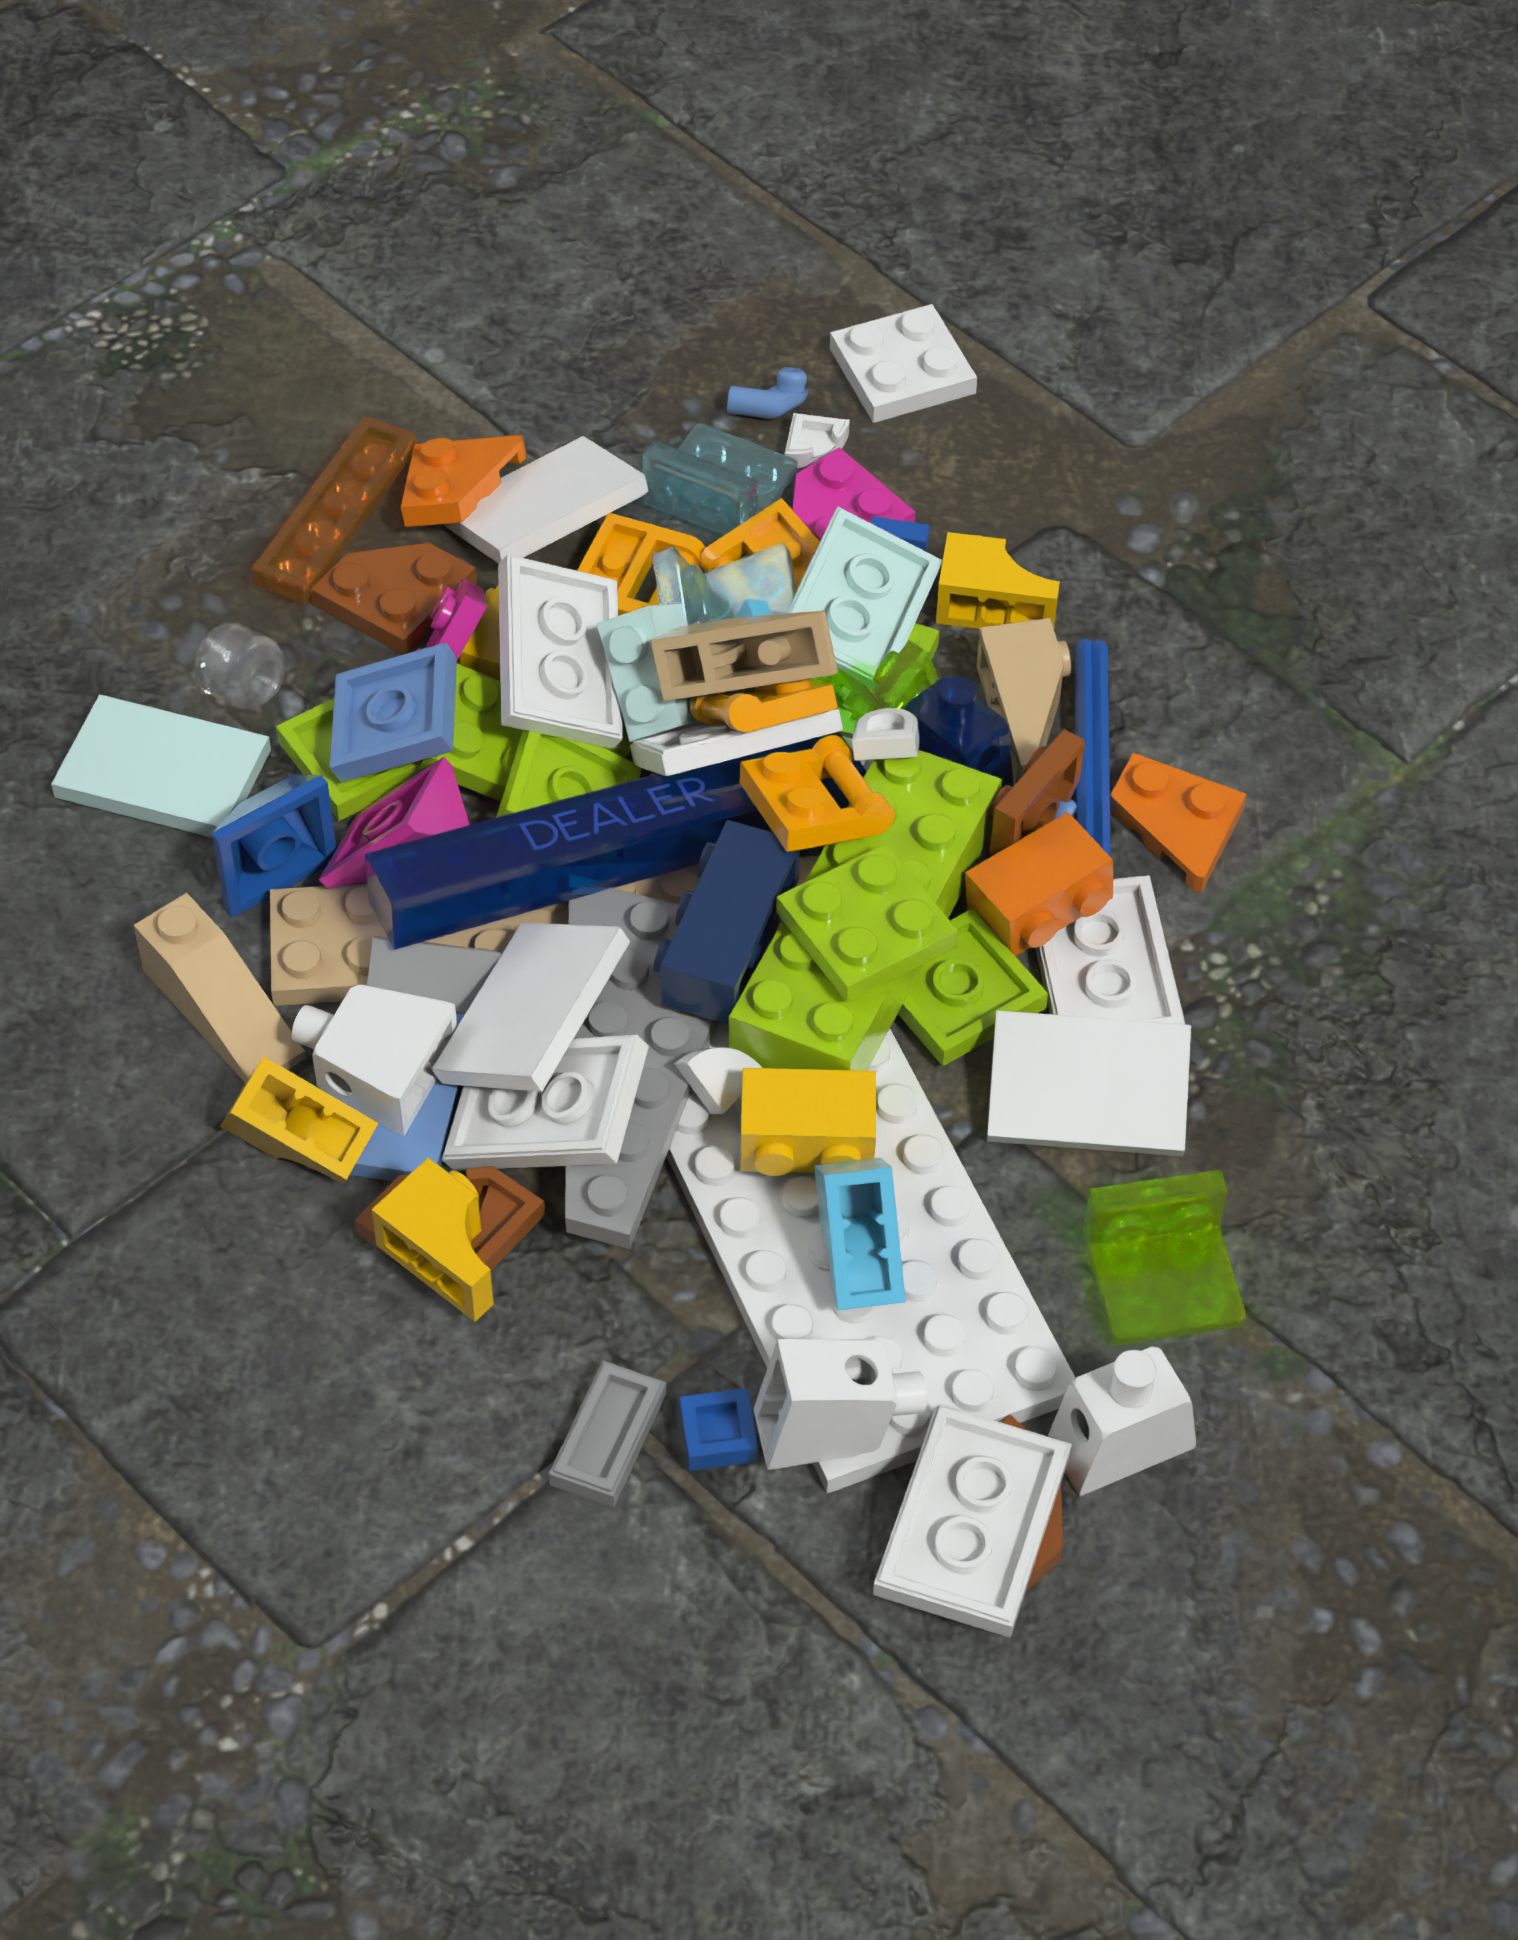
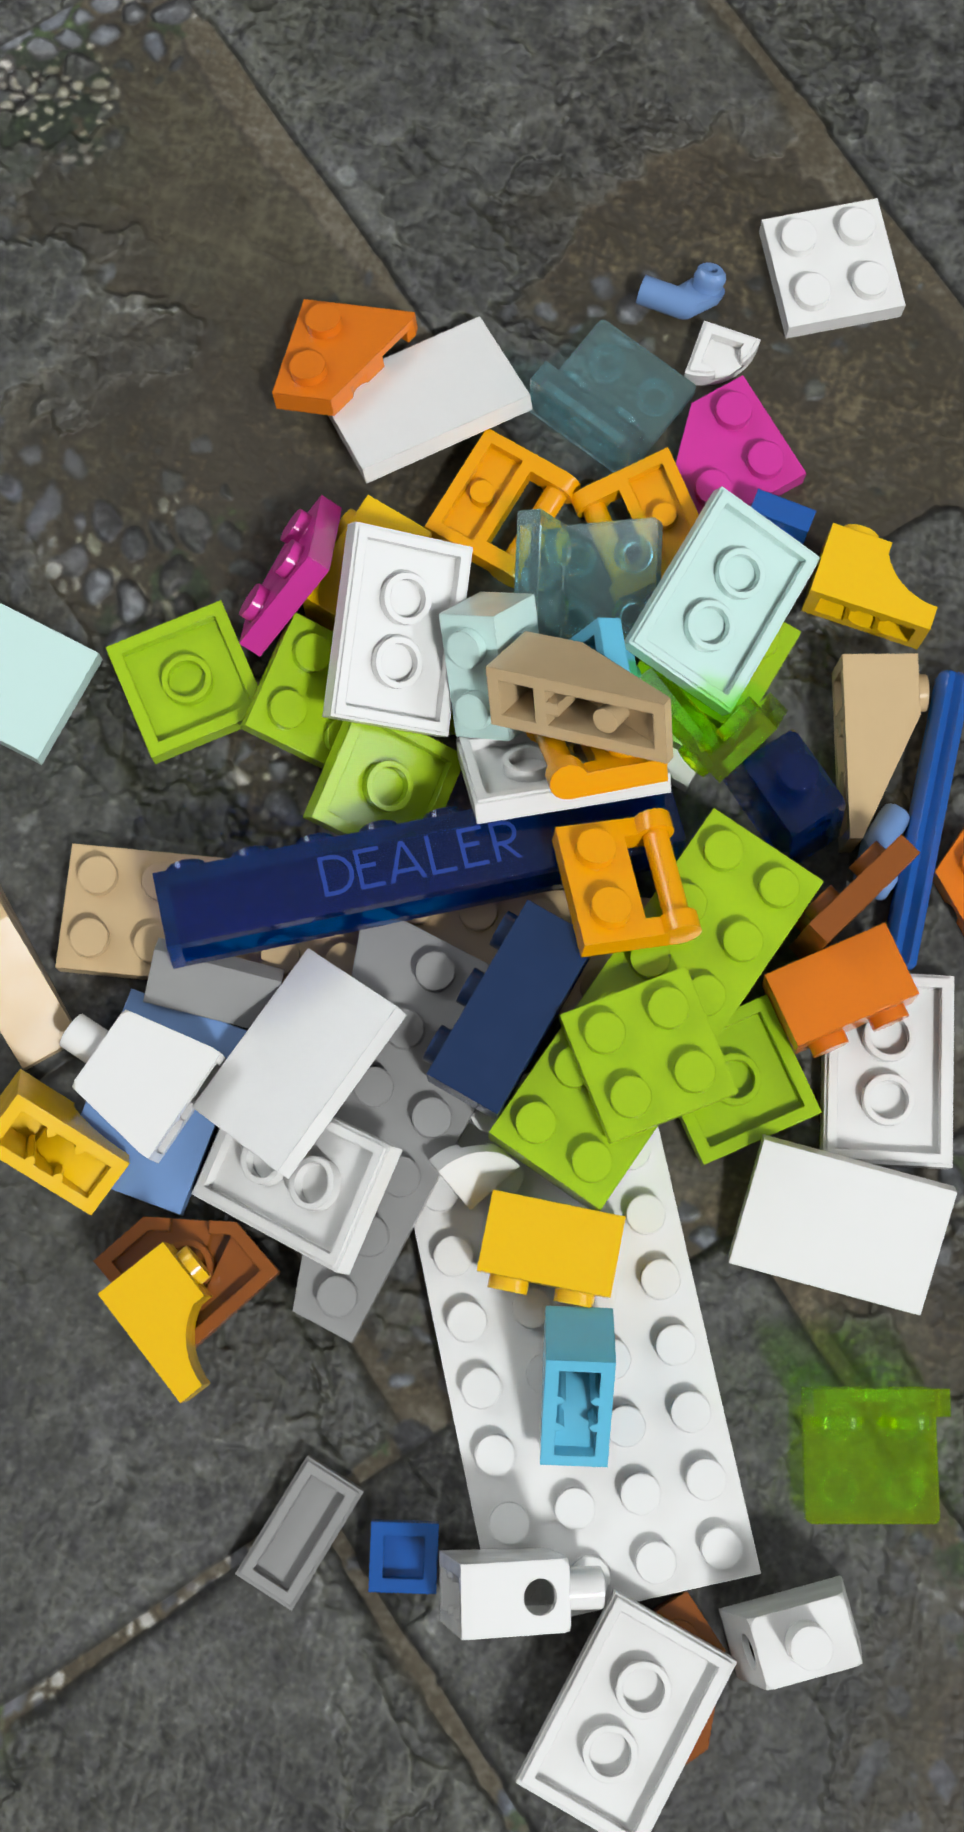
camera: 10 degrees right, 25 degrees up
(239, 666) = (80, 562): clear head -> none
(274, 841) = (74, 794): blue slope -> none
(334, 509) = (208, 371): clear orange plate -> none
(390, 591) = (254, 483): dark orange plate -> none
(393, 712) = (219, 671): medium blue plate -> none
(414, 810) = (207, 805): dark pink slope -> none
(886, 735) = (713, 815): white tile -> none

